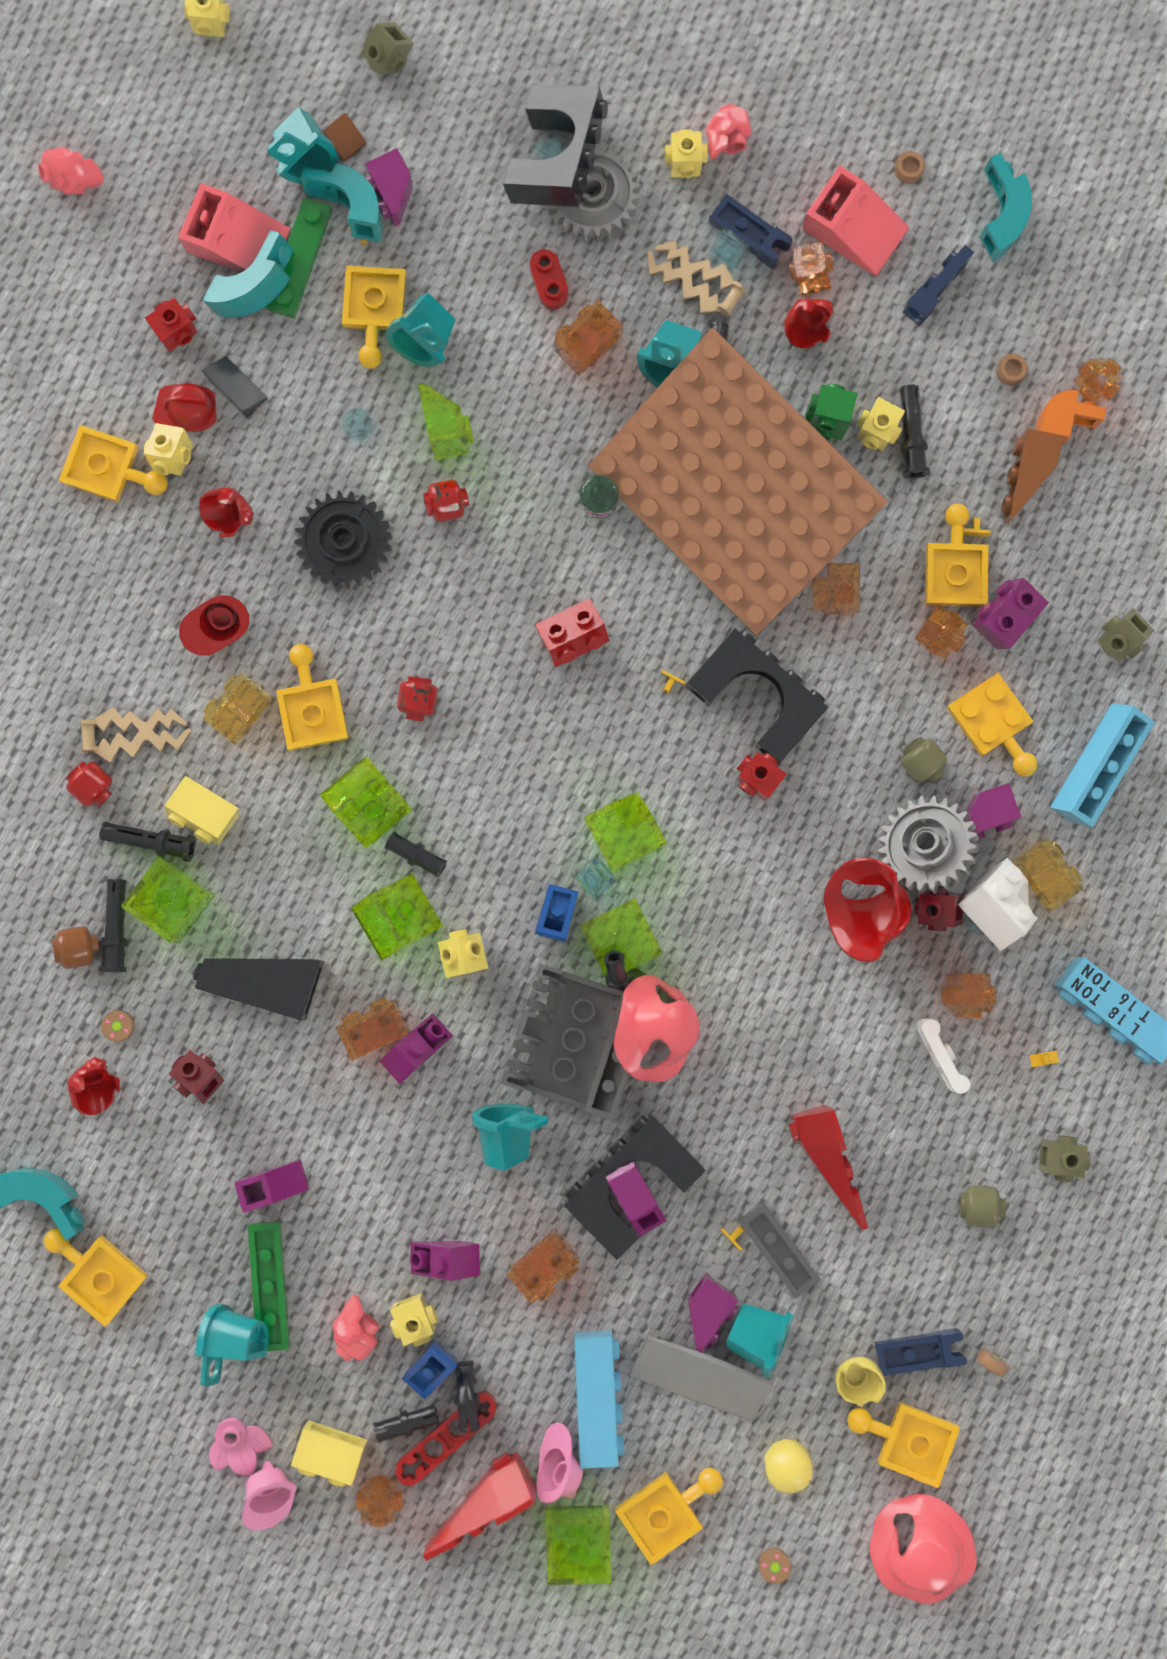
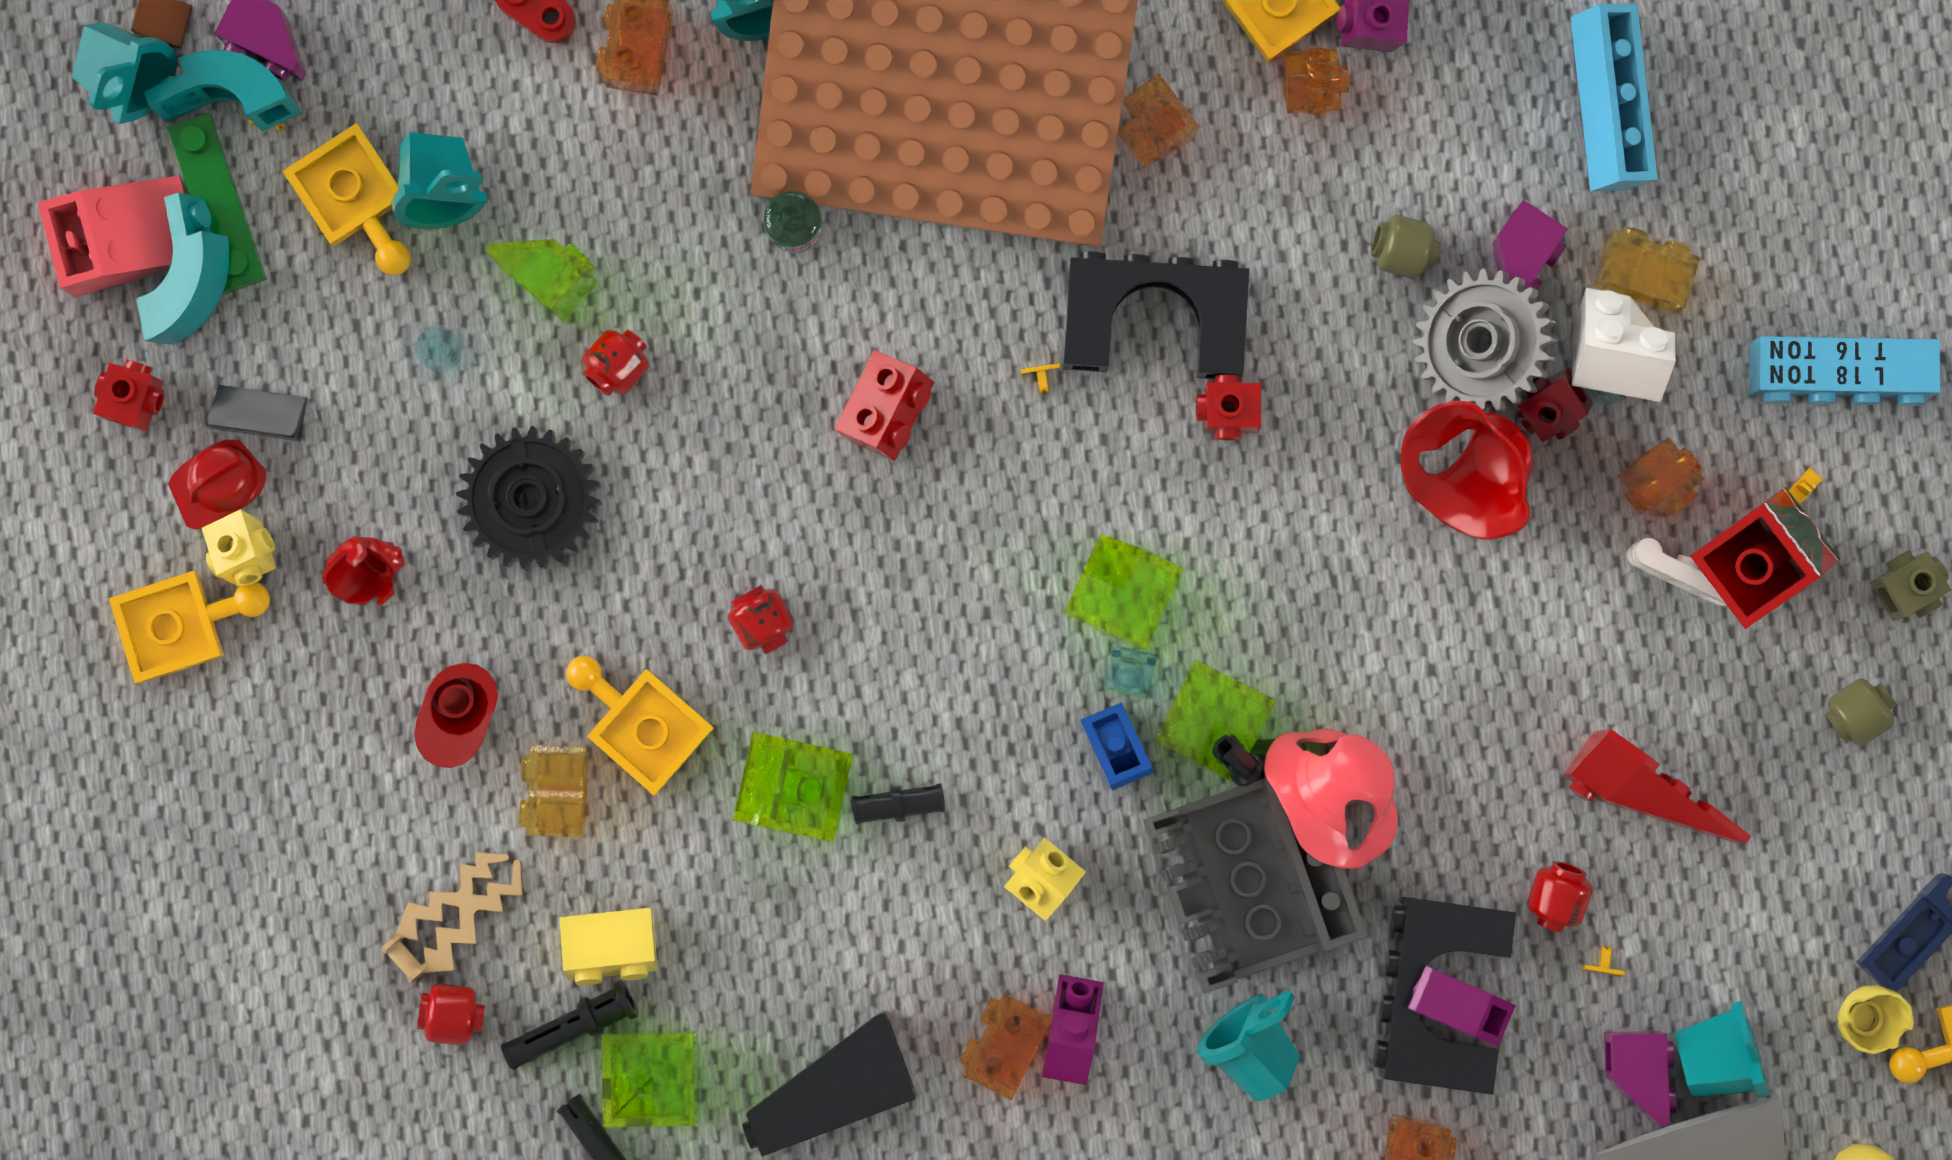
camera: 35 degrees left, 0 degrees up
(396, 916) = (932, 893): clear neon green slope -> none
(737, 1180) = (1559, 896): none -> red head
(779, 1250) = (1668, 940): dark grey plate -> none
(992, 717) = (1445, 136): yellow plate -> none
(993, 1081) = (1765, 558): none -> red slope

